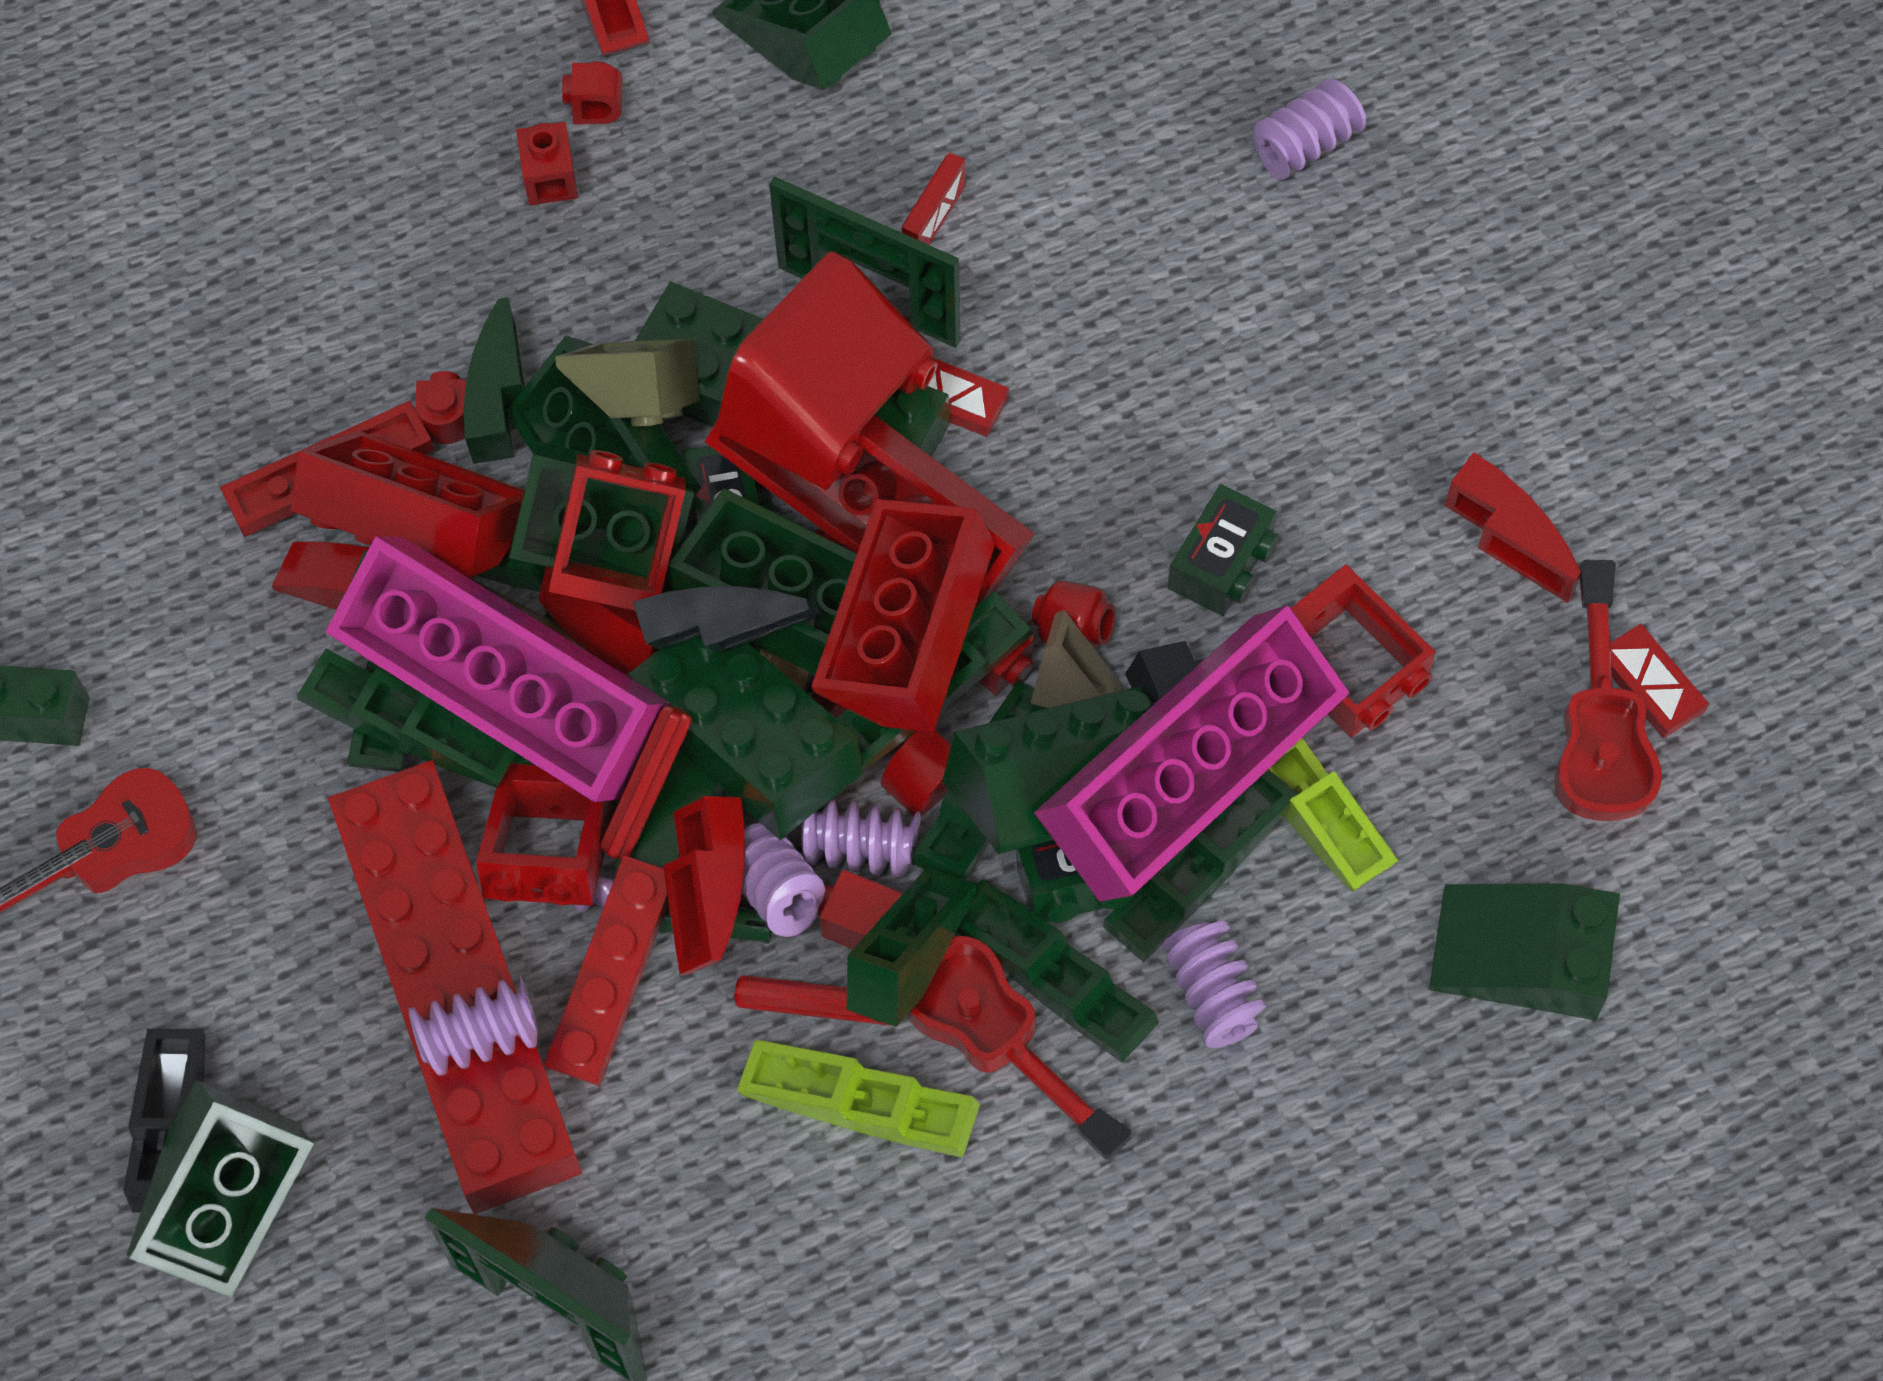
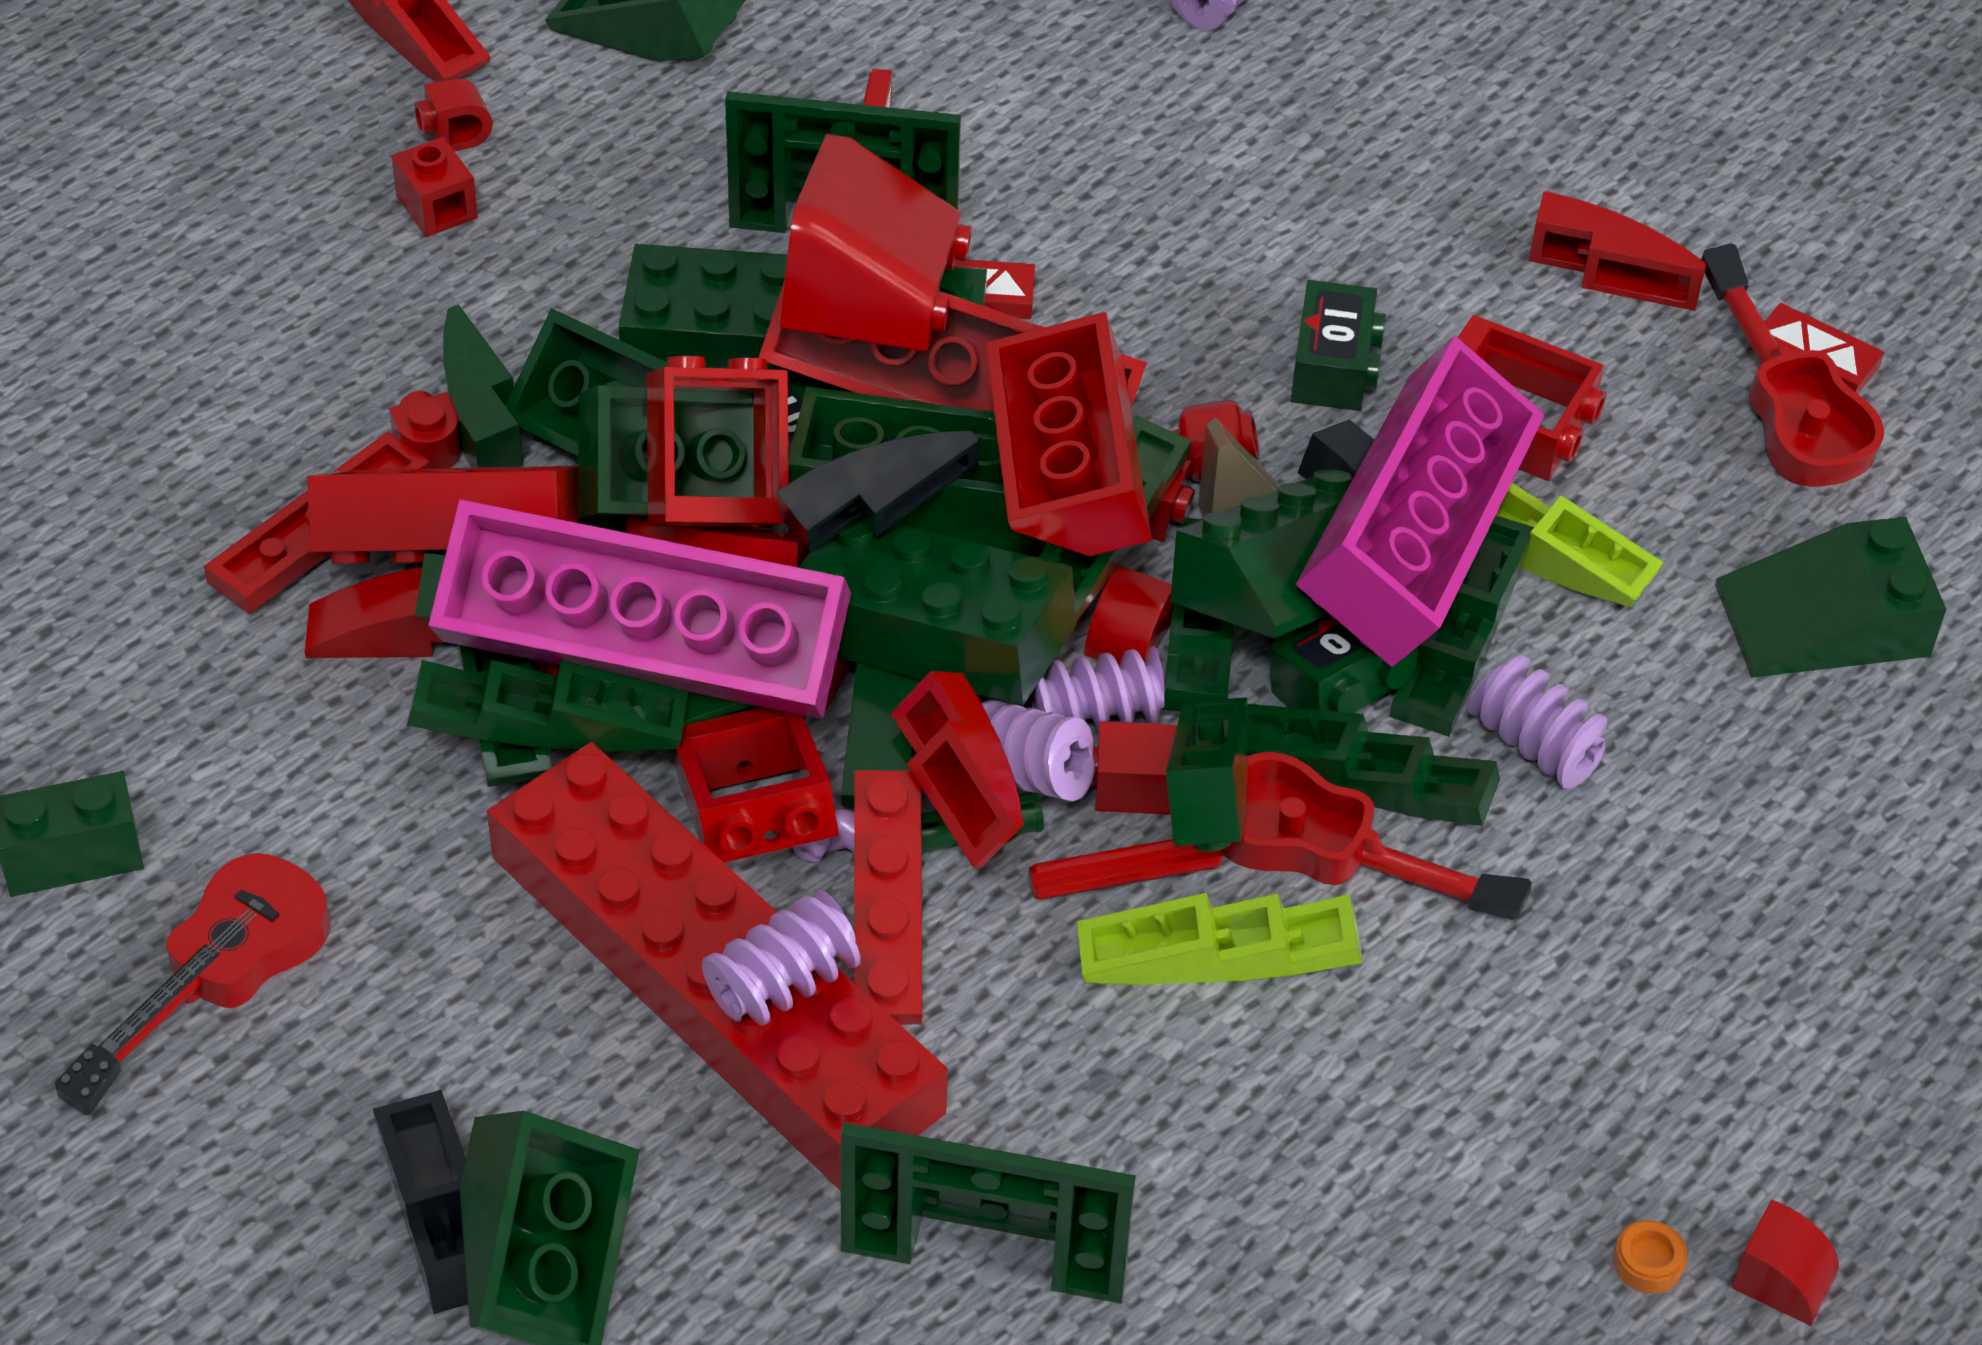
camera: 25 degrees left, 15 degrees down
(636, 377) = (656, 314): olive slope -> none
(646, 782) = (853, 684): red axle -> none

